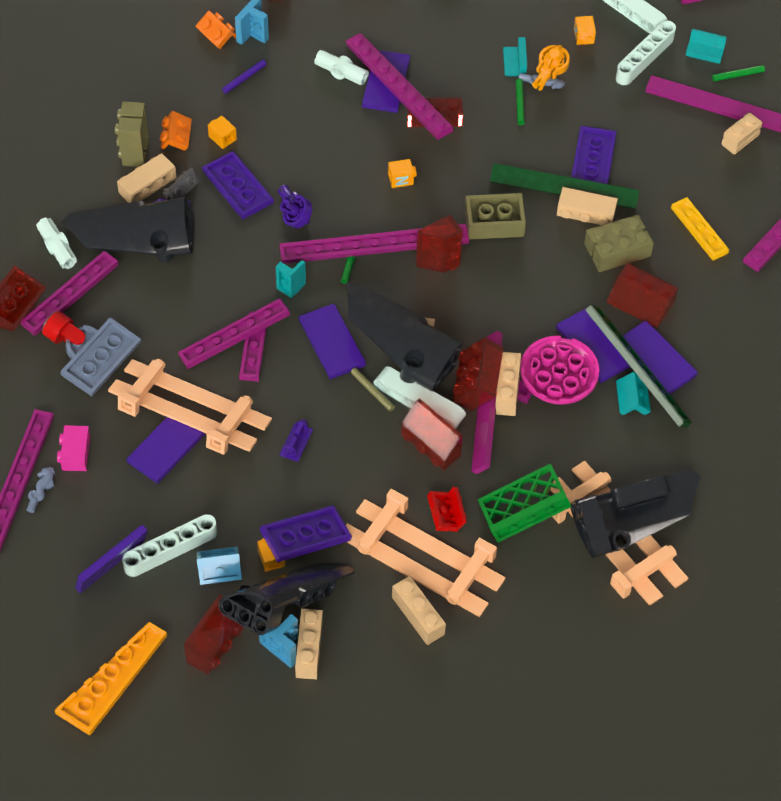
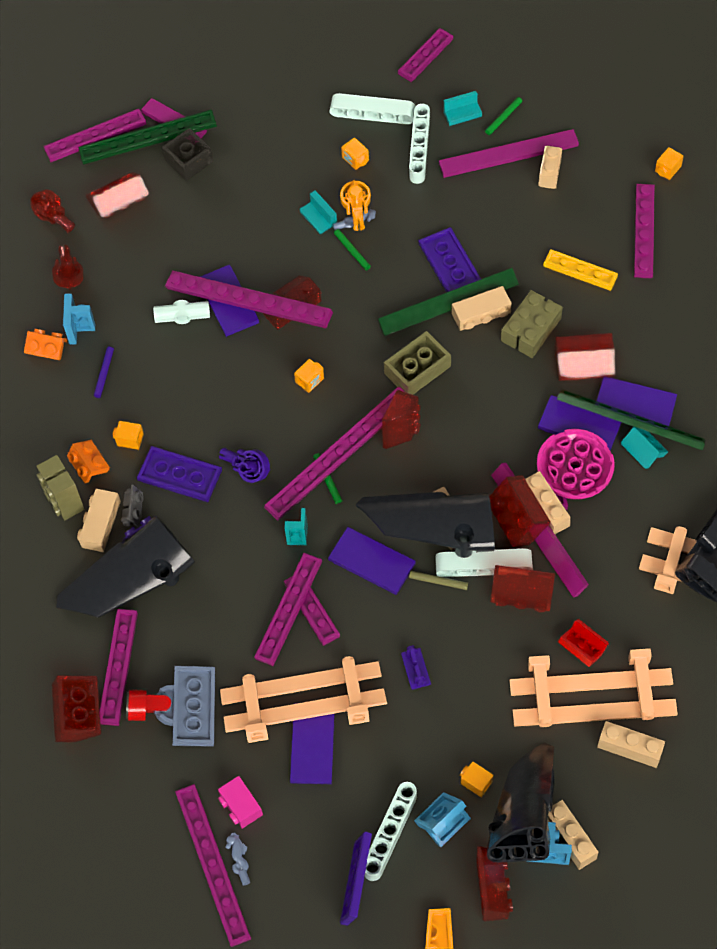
camera: 30 degrees left, 5 degrees up
(56, 243) = (68, 629): light aqua piece -> none
(305, 533) = (492, 743): dark purple tile -> none
(529, 514) = (655, 601): green fence -> none

